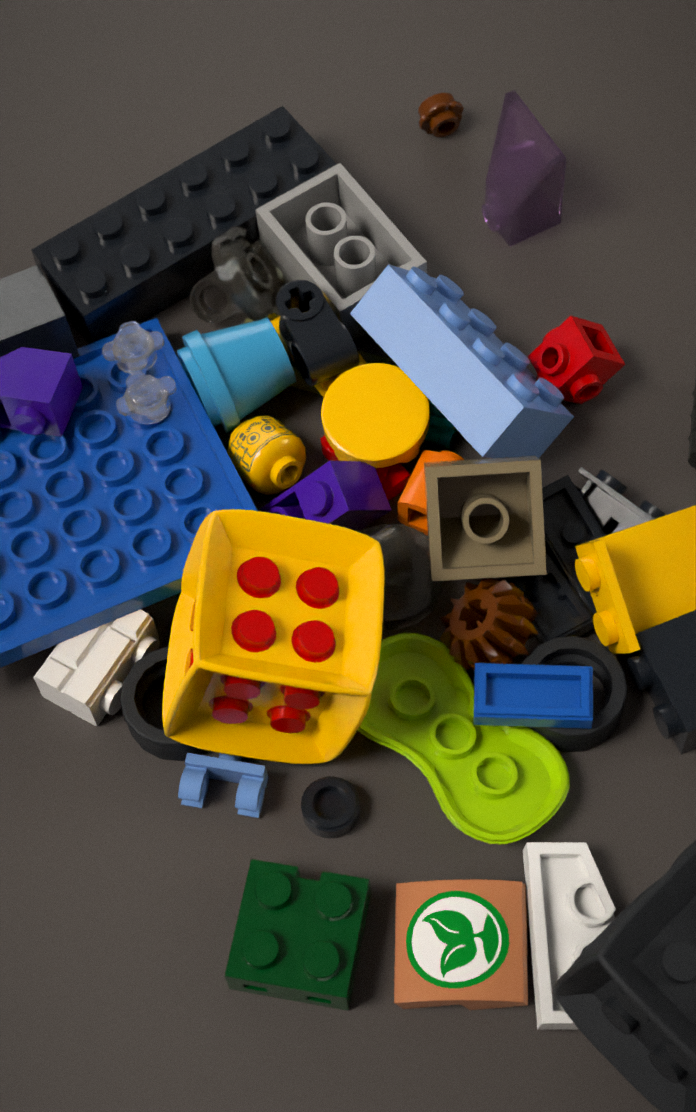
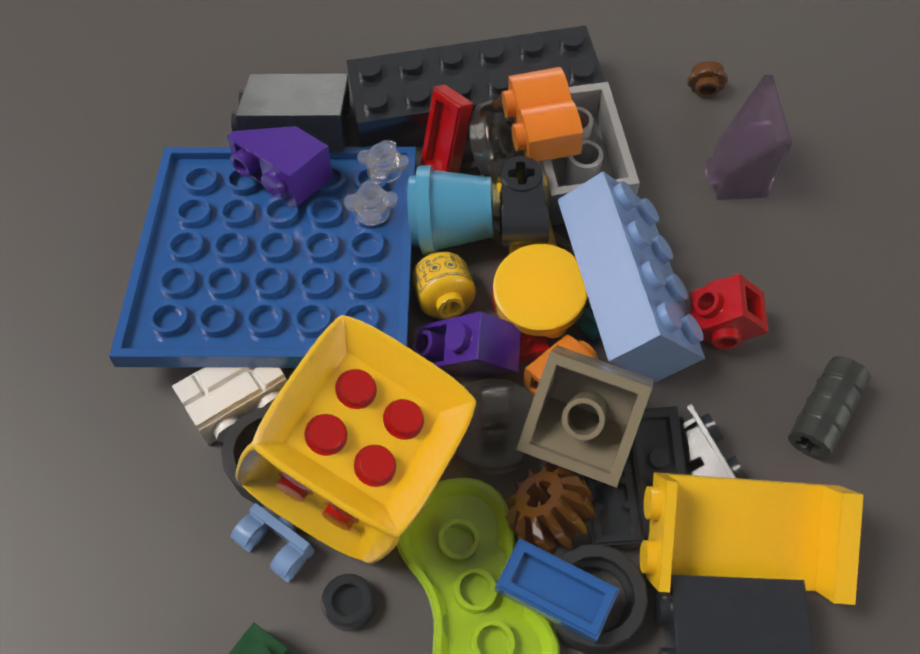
camera: 20 degrees right, 0 degrees up
(187, 286) = (446, 130): none -> red tile
(292, 227) = (543, 115): none -> orange brick

